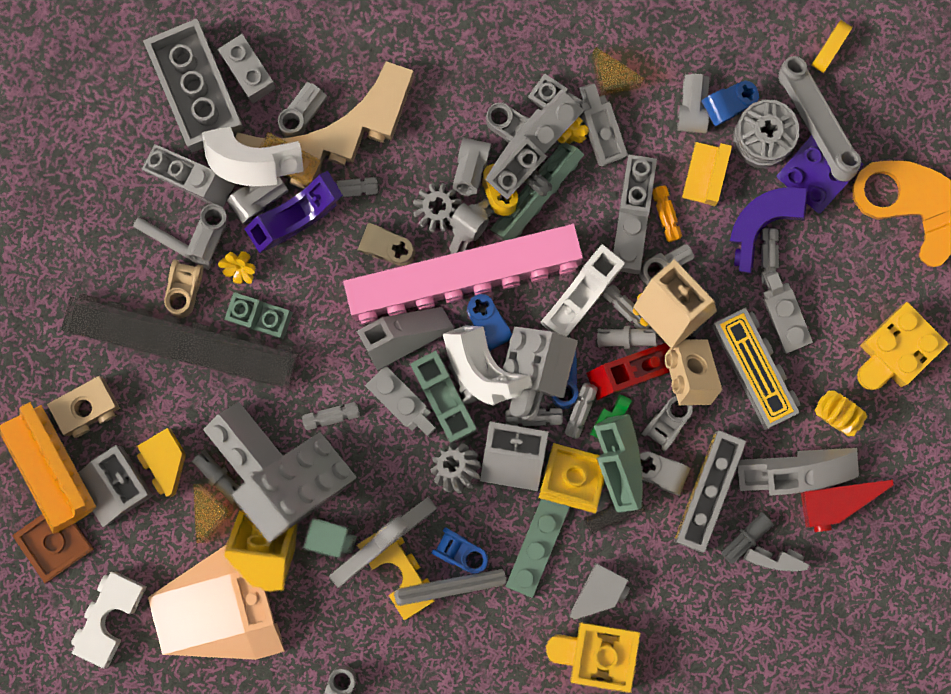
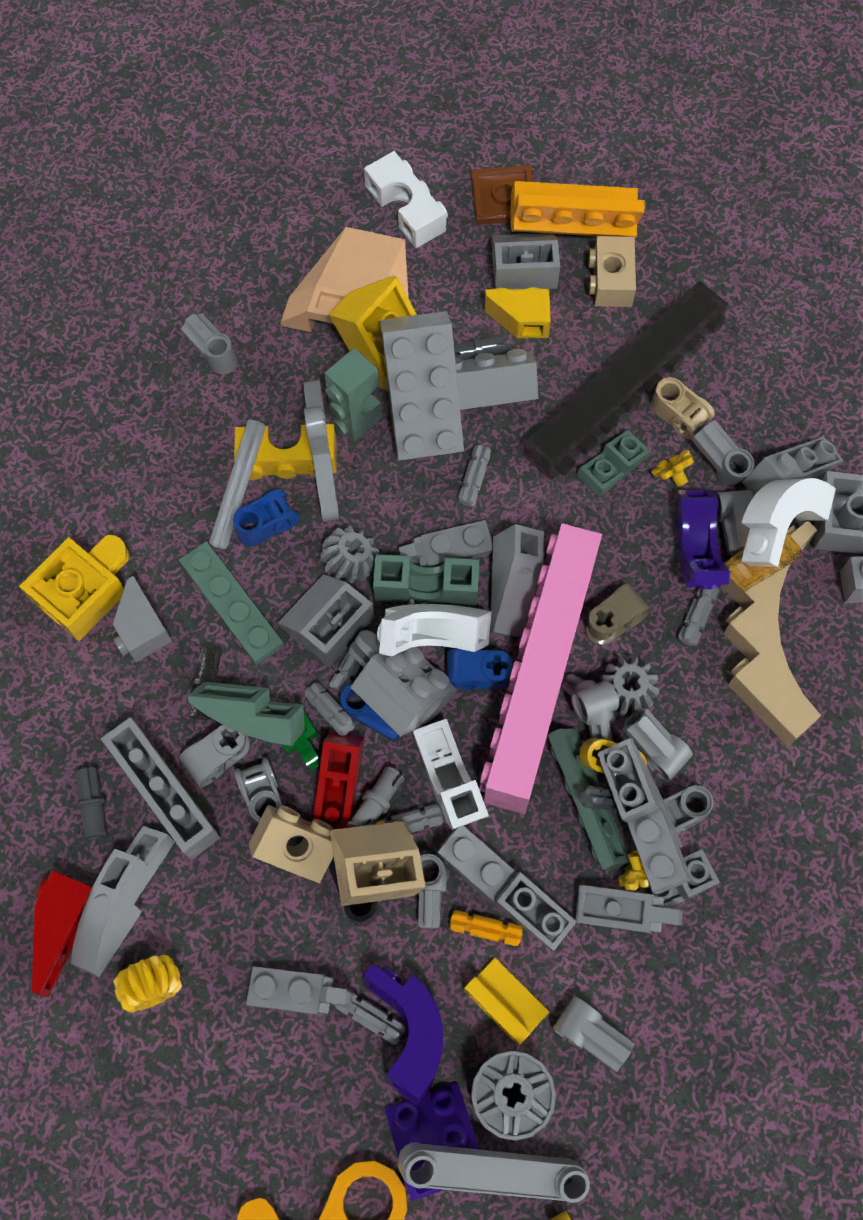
camera: 115 degrees right, 15 degrees down
(164, 238) = (742, 420): light grey bar -> none
(209, 513) = (464, 322): clear yellow slope -> none
(302, 109) = (807, 611): light grey piece -> none
(572, 478) = (267, 659): yellow tile -> none
(612, 75) = (678, 956): clear yellow slope -> none
(730, 102) = (573, 1071): blue piece -> none
(755, 368) = (256, 919): brick -> none
(784, 561) = (37, 826): light grey slope -> none
(900, 350) = (169, 1102): yellow brick -> none

